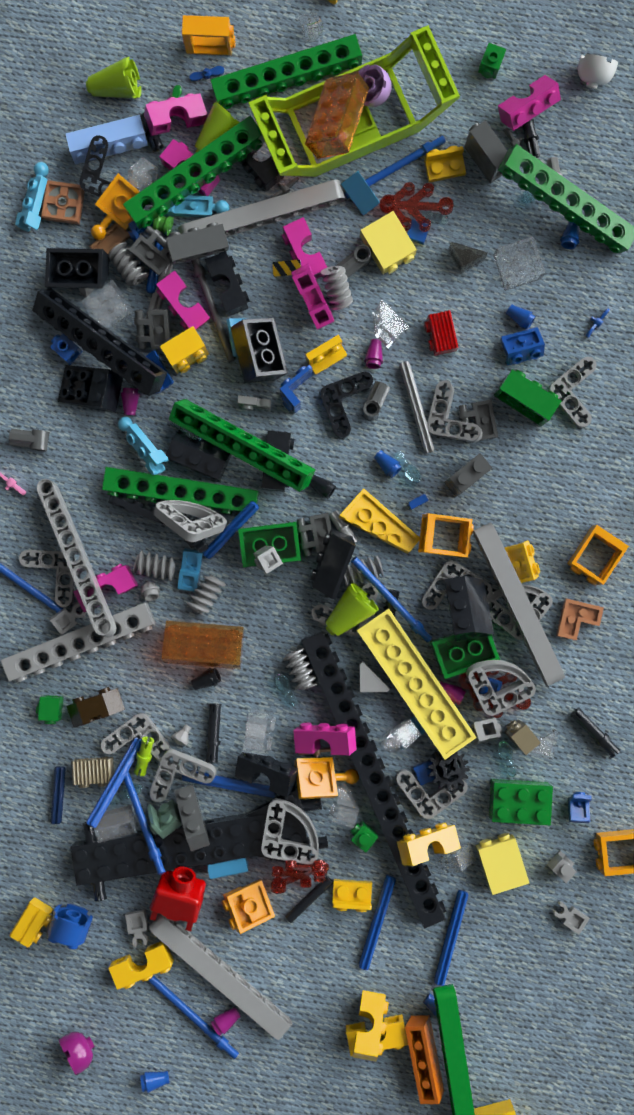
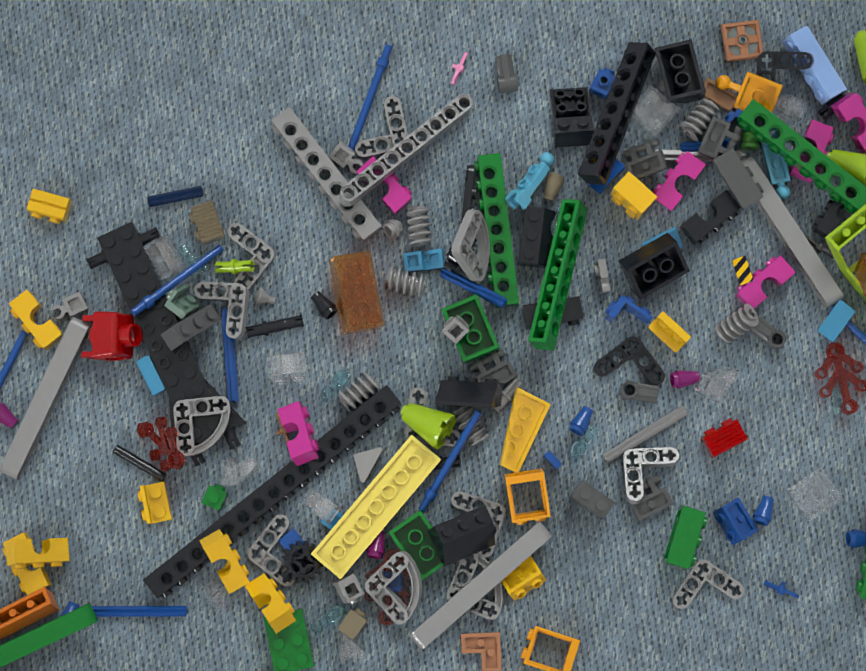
camera: 75 degrees right, 5 degrees down
(34, 196) = (736, 12): medium azure plate -> none
(50, 708) = (255, 166): green brick -> none
(69, 925) = (56, 241): blue brick -> none
(99, 706) = (268, 207): dark brown brick -> none
(114, 783) = (203, 246): blue axle -> none
(130, 400) = (570, 157): magenta cone -> none
(152, 425) = (553, 185): none -> dark tan cone
(200, 273) = (713, 188): dark grey bar -> none
(247, 906) = (118, 405): light orange plate -> none
(280, 774) = (253, 400): black arch -> none
(313, 296) = (729, 294): dark pink arch -> none
(318, 779) = (258, 438): light orange plate -> none
(322, 486) = (540, 365): black cone -> none
(377, 922) = (142, 535): blue axle -> none
(388, 243) = (796, 361): light yellow brick -> none
(416, 234) = (814, 386): blue tile -> none
(465, 256) = (805, 441): clear smoke slope -> none
(495, 808) = (277, 612): none -> yellow arch
(502, 863) = (224, 640): light yellow brick -> none

